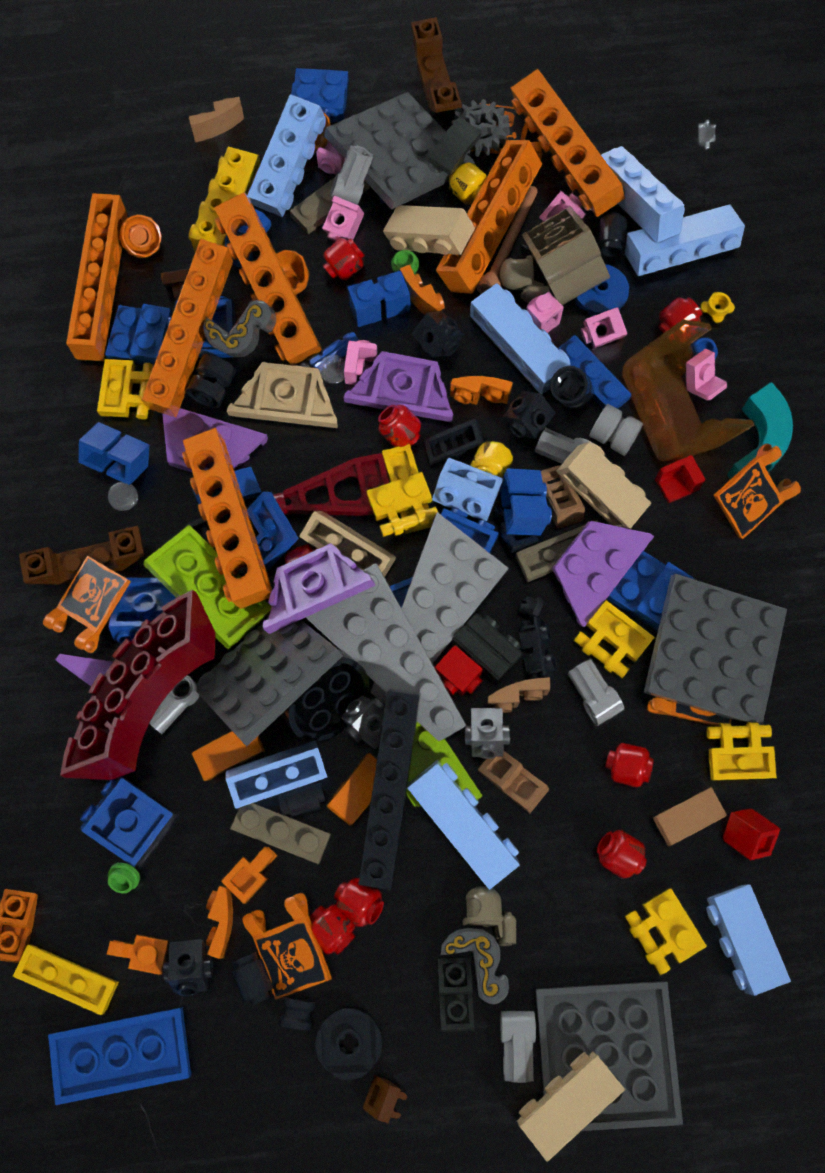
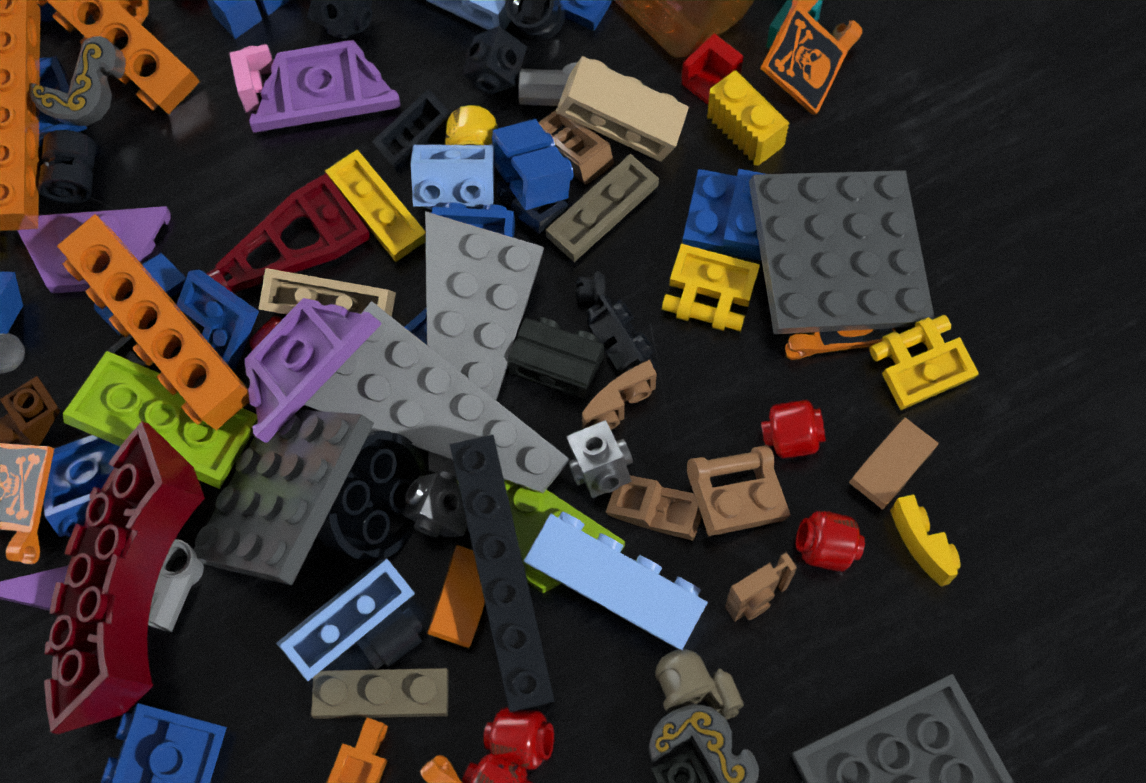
camera: 20 degrees left, 5 degrees down
(224, 754) = (267, 620): orange slope -> none
(285, 395) = (173, 151): tan wing -> none
(332, 368) = (222, 97): clear plate -> none
(338, 348) = (212, 80): blue axle -> none
(399, 425) = (335, 132): red head -> none
(399, 497) = (372, 215): yellow plate -> none
(459, 672) = (534, 399): red brick -> none
(469, 389) = (407, 57): orange slope -> none
(557, 871) = (754, 592): none -> medium nougat plate
(570, 802) = (742, 503): none -> medium nougat plate
(596, 565) = (652, 206): medium lavender wing -> none
(599, 699) = (723, 366): light grey piece -> none
(615, 429) = (610, 40): light grey wheel -> none
(674, 927) = (930, 605): yellow plate -> none
(690, 525) = (747, 118): none -> yellow brick
(690, 892) = (930, 551): none -> yellow slope
(747, 940) = (1028, 582): light blue brick -> none
(751, 834) = (977, 453): red panel -> none

